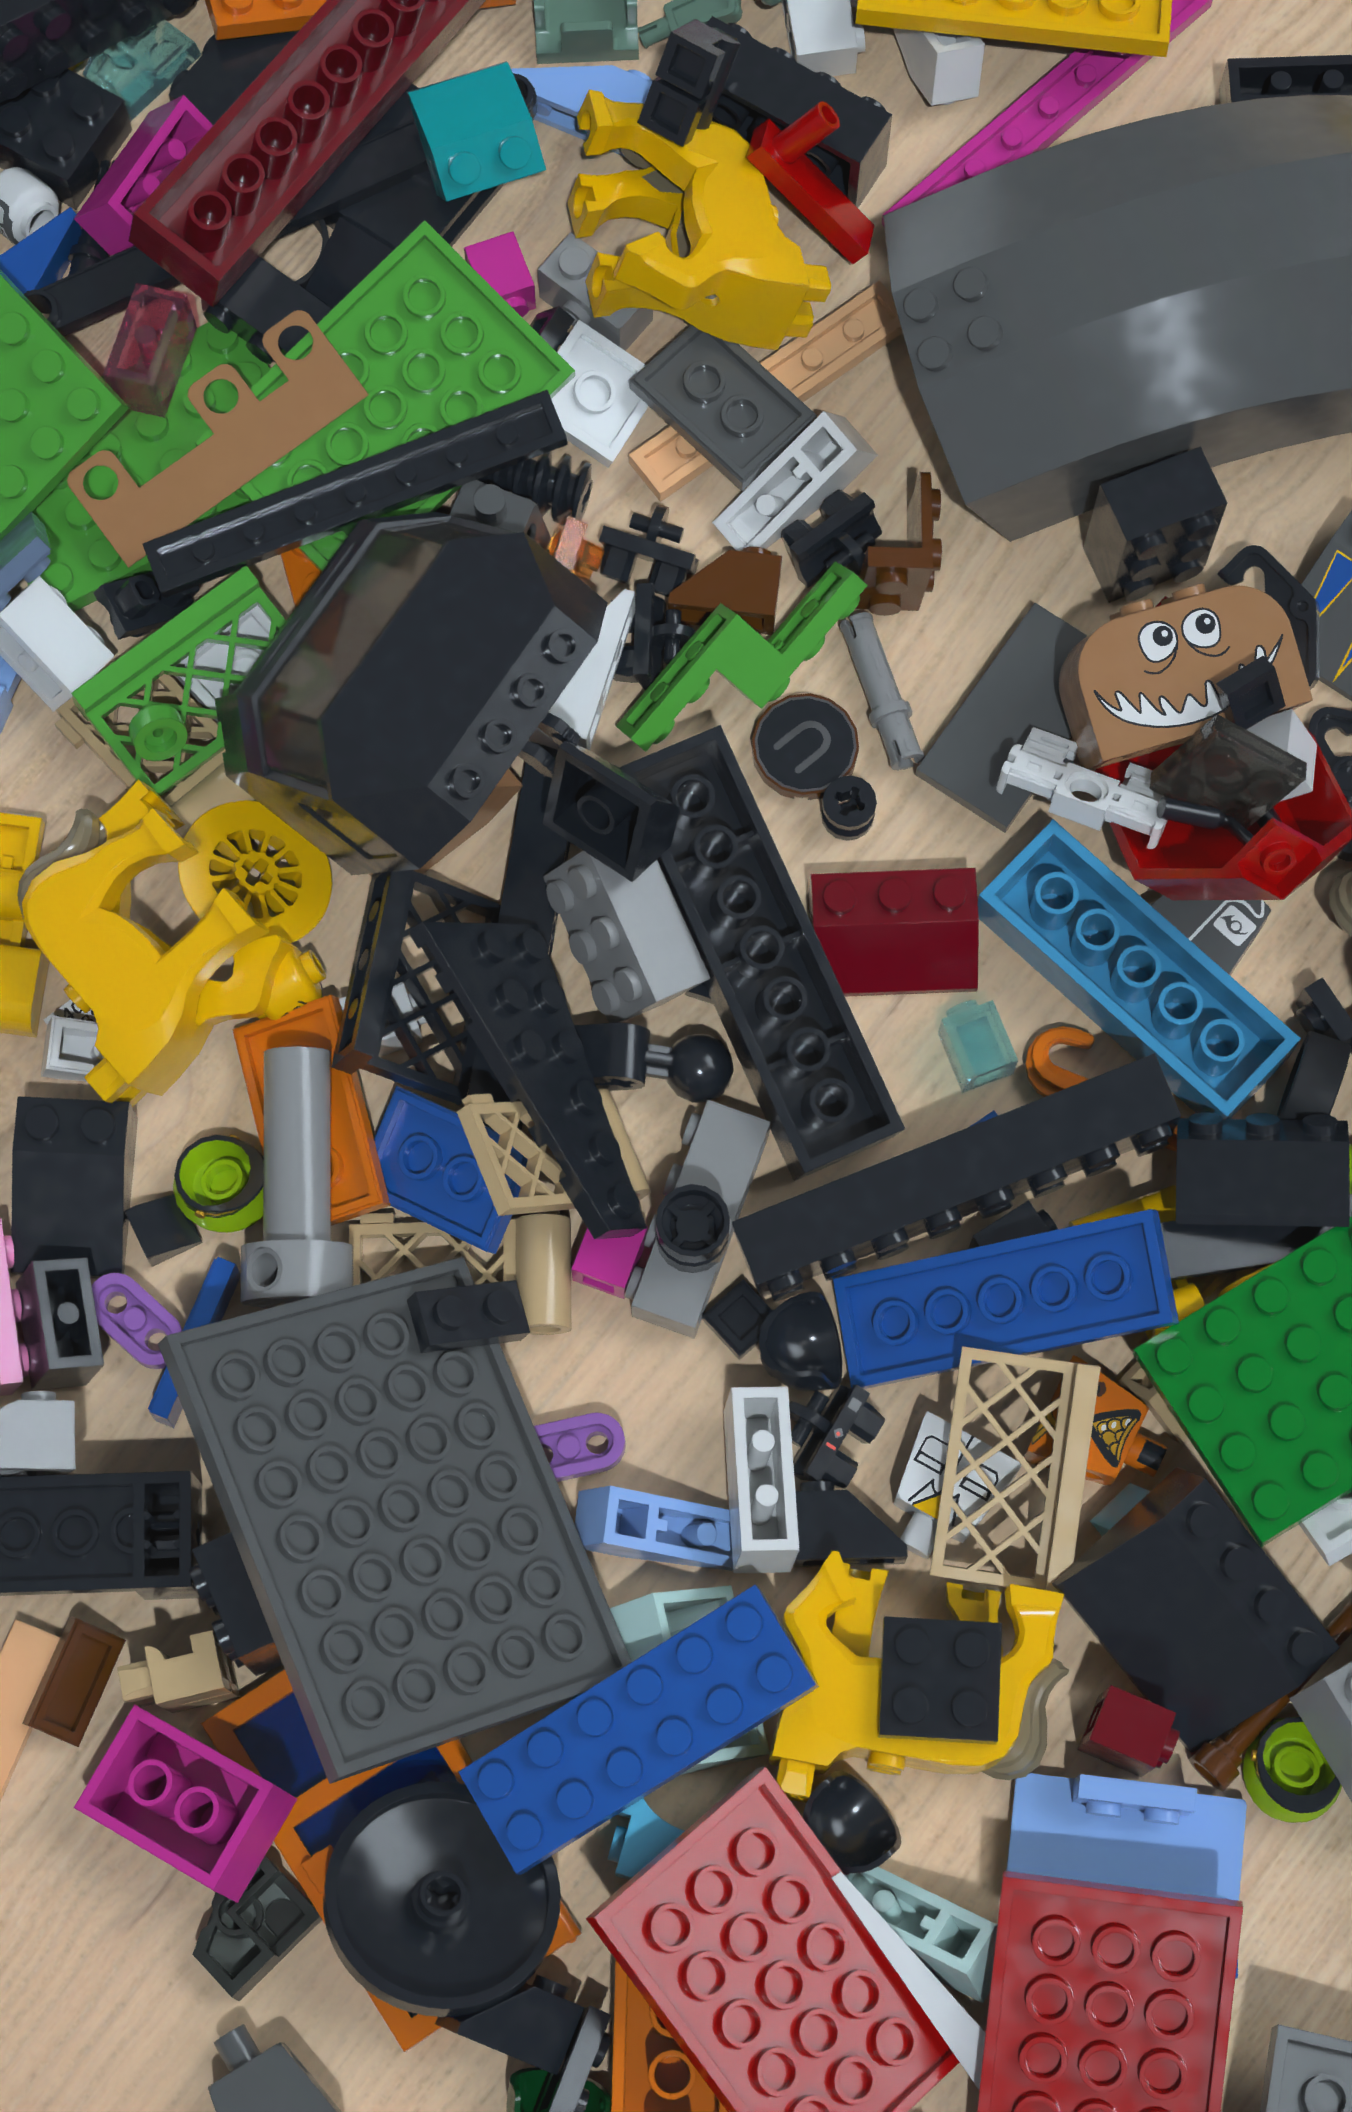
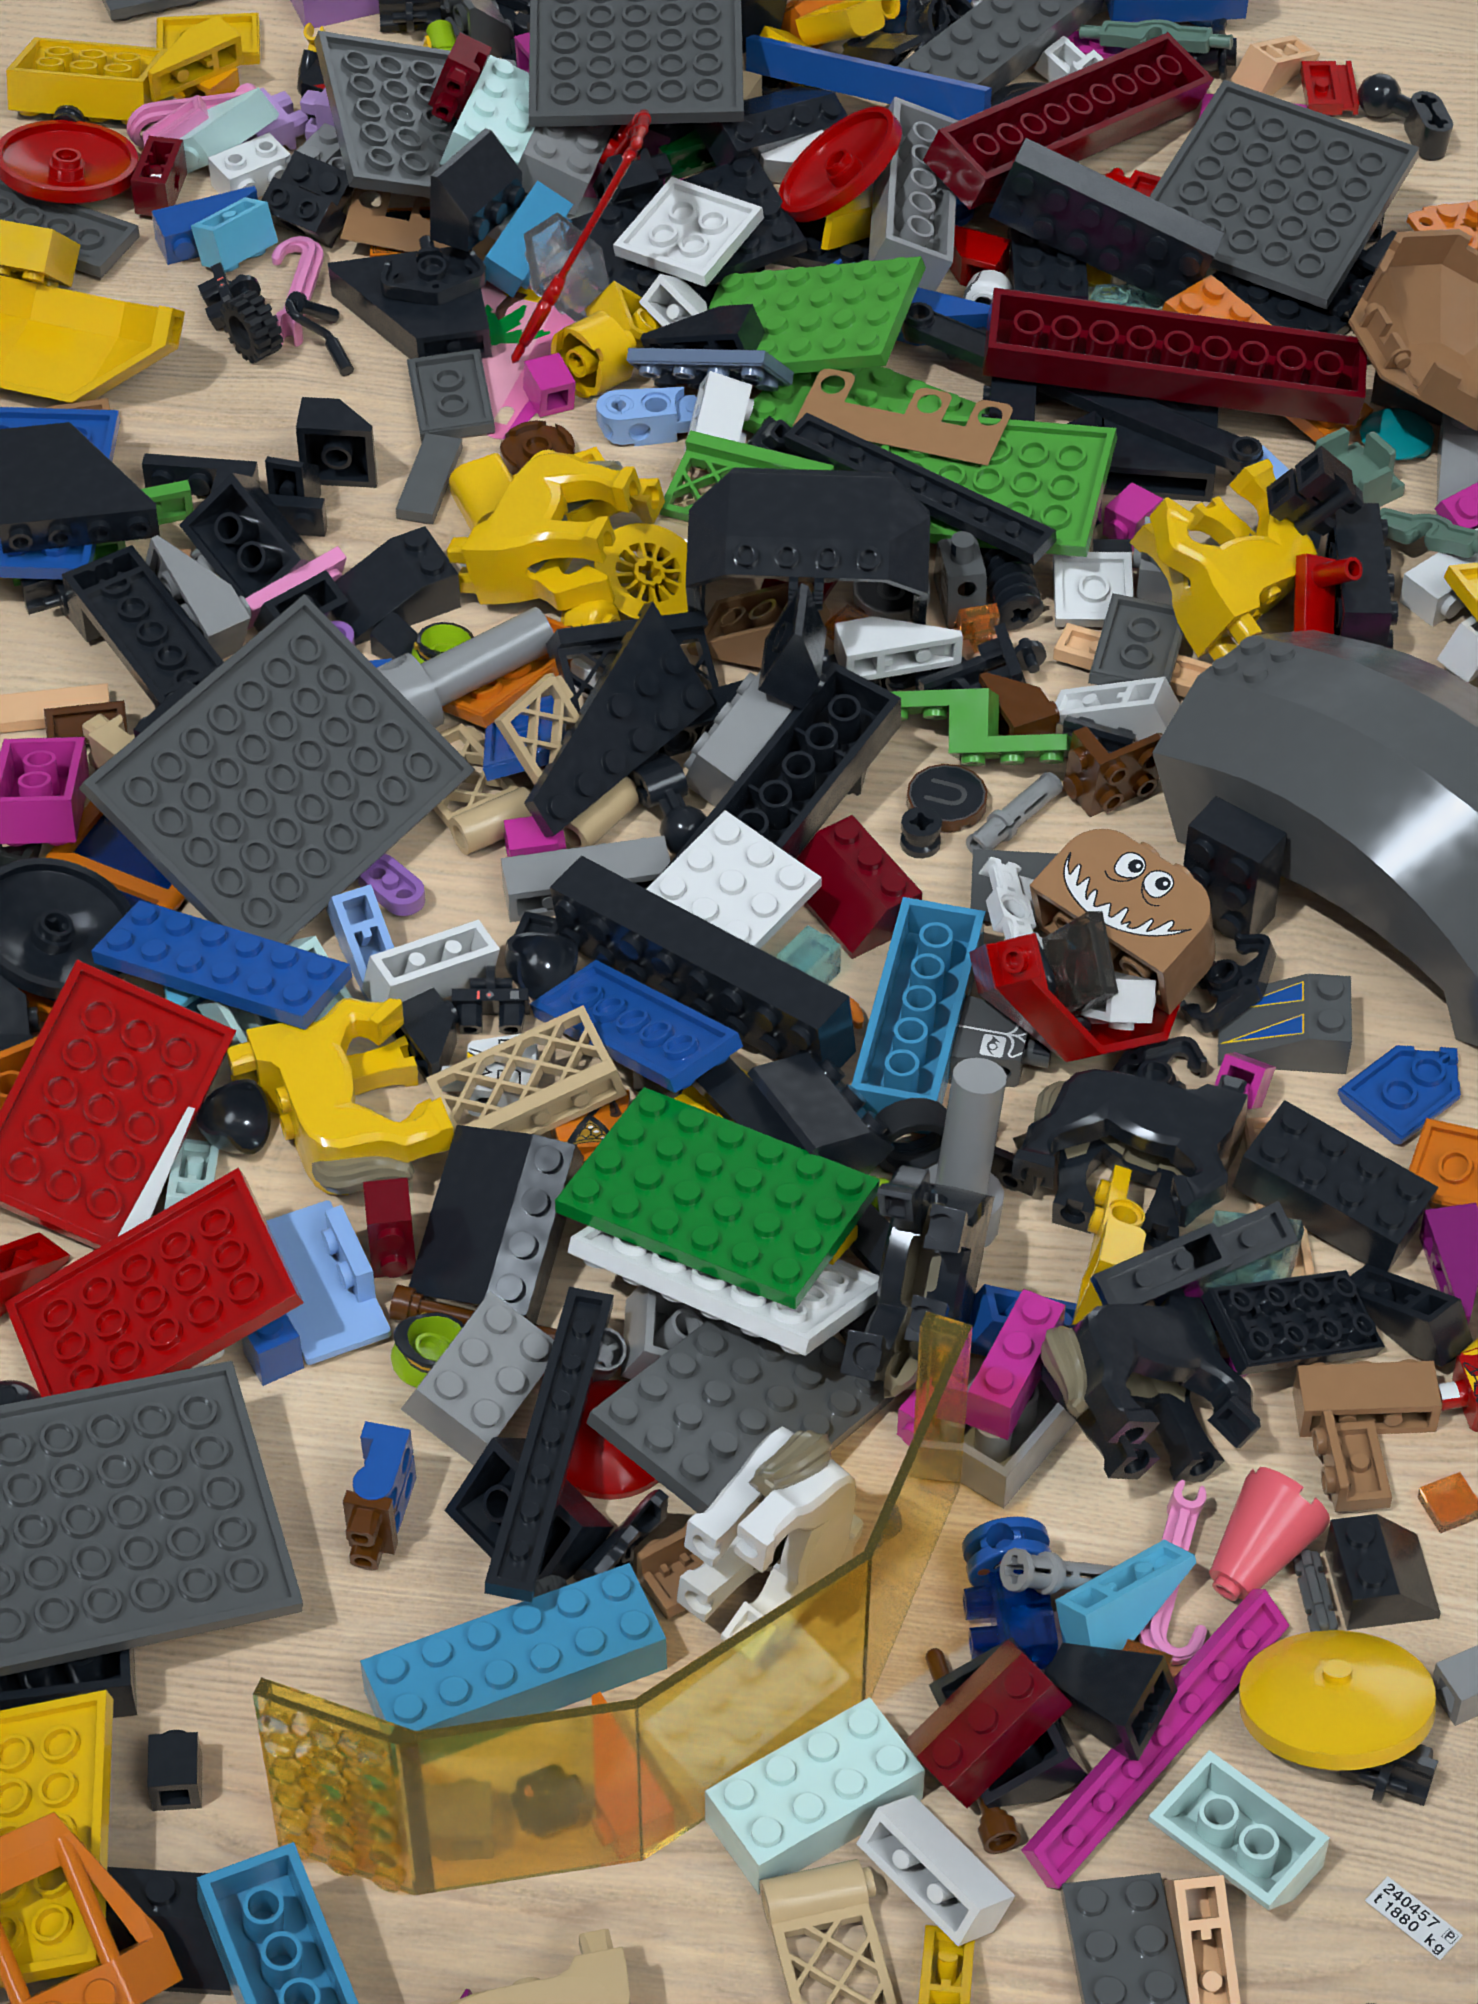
camera: 60 degrees right, 25 degrees down
(151, 349) = (939, 366): clear pink brick -> none
(157, 732) = (696, 477): bright green tile -> none
(468, 1316) = (434, 778): black plate -> none
(476, 131) = (1199, 436): teal slope -> none
(692, 1228) = (562, 840): black wheel -> none
(868, 1076) = (737, 881): none -> white plate
(940, 1680) = (349, 1085): black plate -> none
(1251, 693) = (1131, 923): black plate -> none

